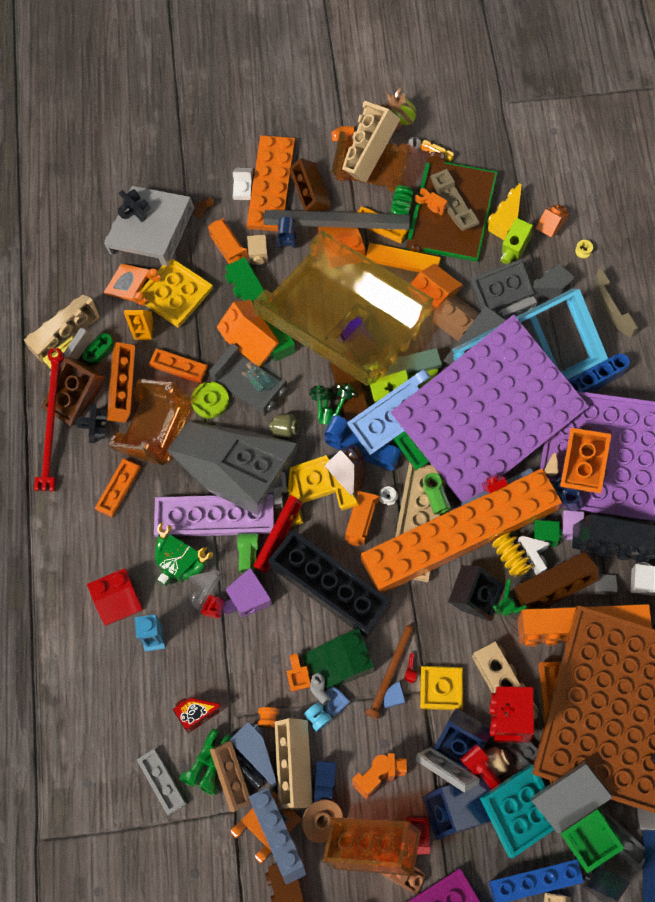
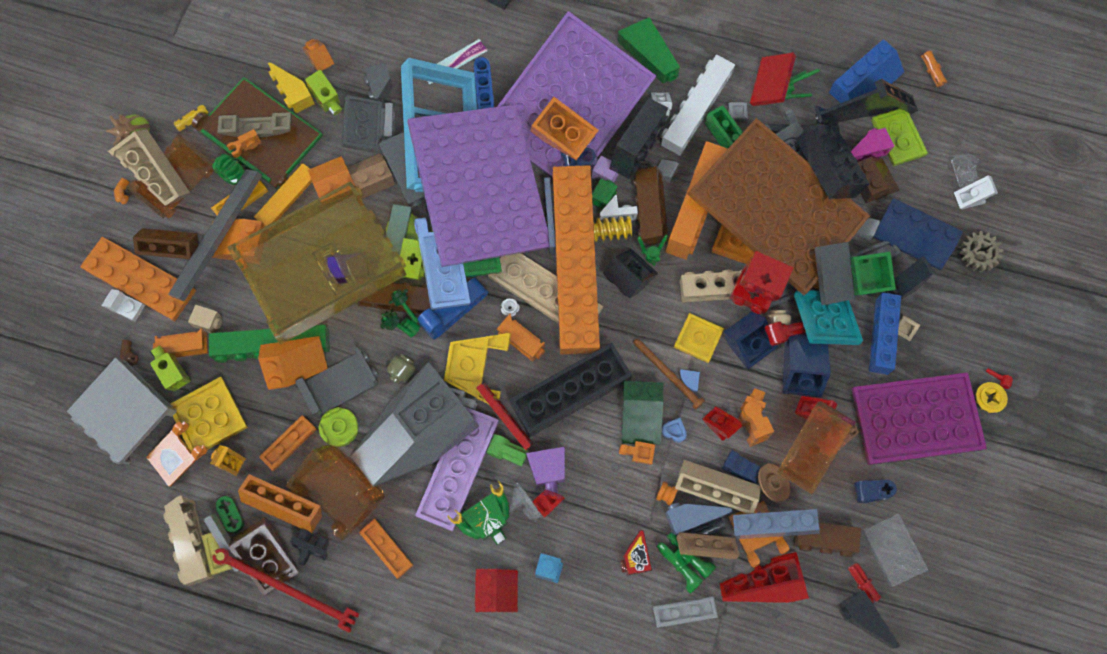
camera: 70 degrees left, 5 degrees up
(129, 202) = (94, 420): black hips -> none
(198, 242) = (174, 375): none -> lime torso
(222, 860) = (775, 582): none -> red wedge
(259, 379) = (343, 372): clear light blue plate -> none
(286, 232) = (204, 284): dark blue piece -> none
(317, 688) = (659, 439): light grey arm -> none
(317, 716) = (683, 450): medium azure wheel -> none
(348, 468) = (470, 328): slope -> none
(361, 744) = (722, 423): none -> red slope
(410, 675) = (678, 358): red hand -> none
(417, 148) = (169, 136): light grey hinge -> none
(436, 495) = (533, 265): bright green piece -> none
(447, 769) = (773, 360): light grey tile -> none
(494, 483) = (548, 211): red plate -> none
(552, 466) = (551, 158): tan slope -> none
(584, 254) = (361, 48): light yellow bush -> none
(621, 342) = (464, 55): none -> sticker
(623, 323) = (424, 51): dark tan slope -> none

